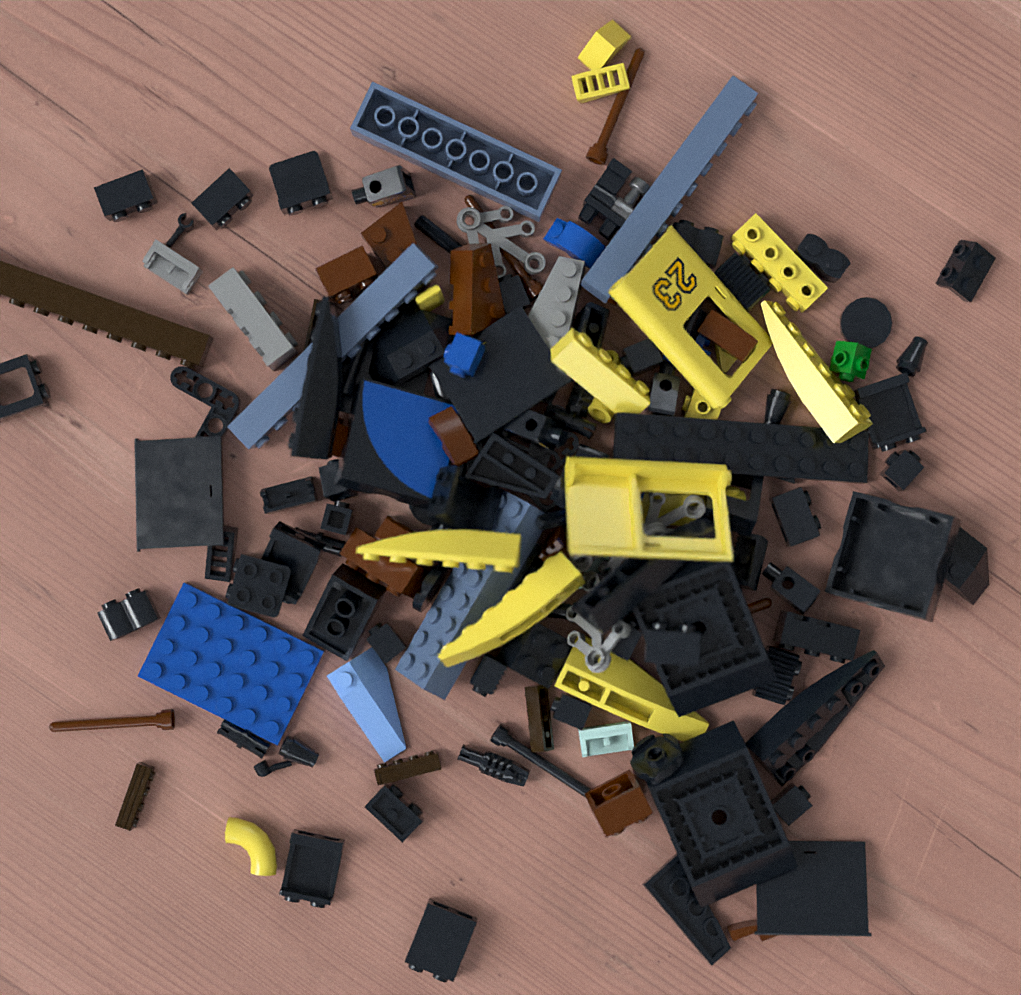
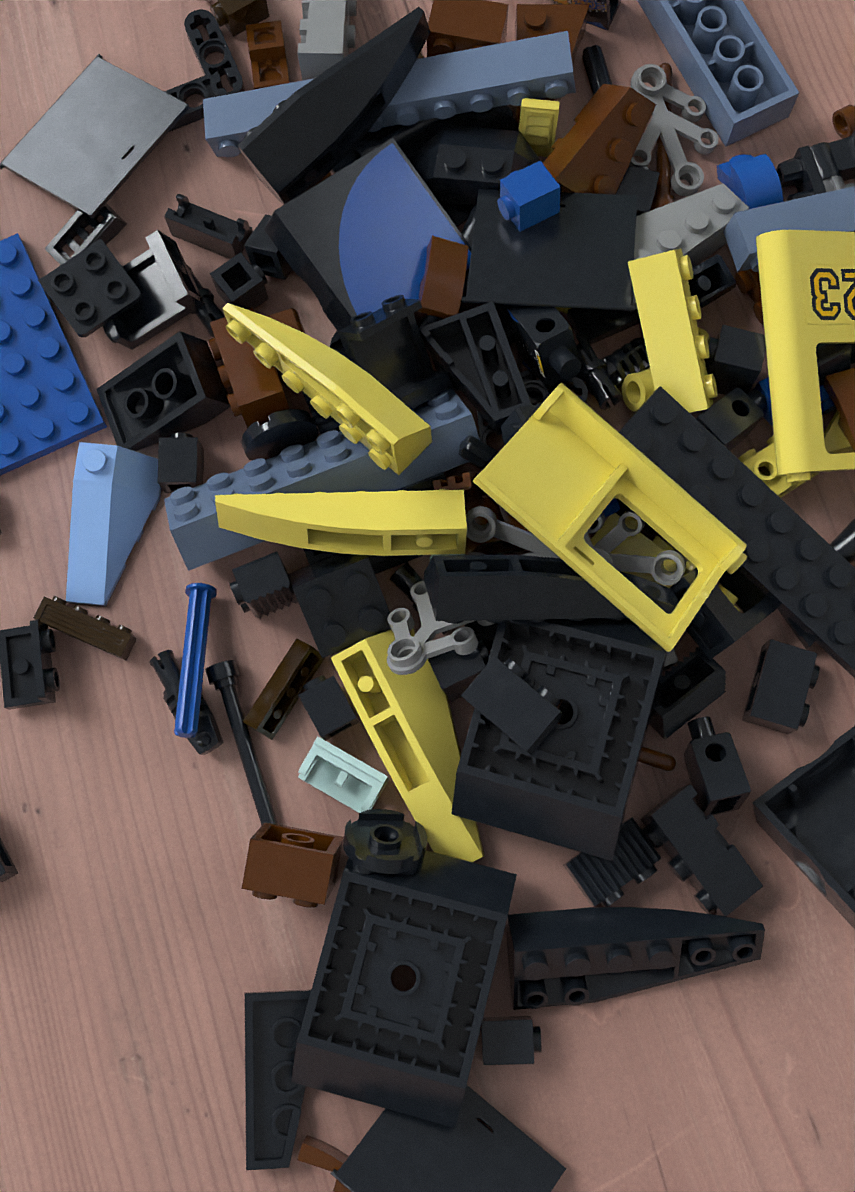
camera: 45 degrees right, 10 degrees down
(237, 367) = (267, 54): none -> reddish brown slope
(481, 741) = (193, 659): none -> blue axle

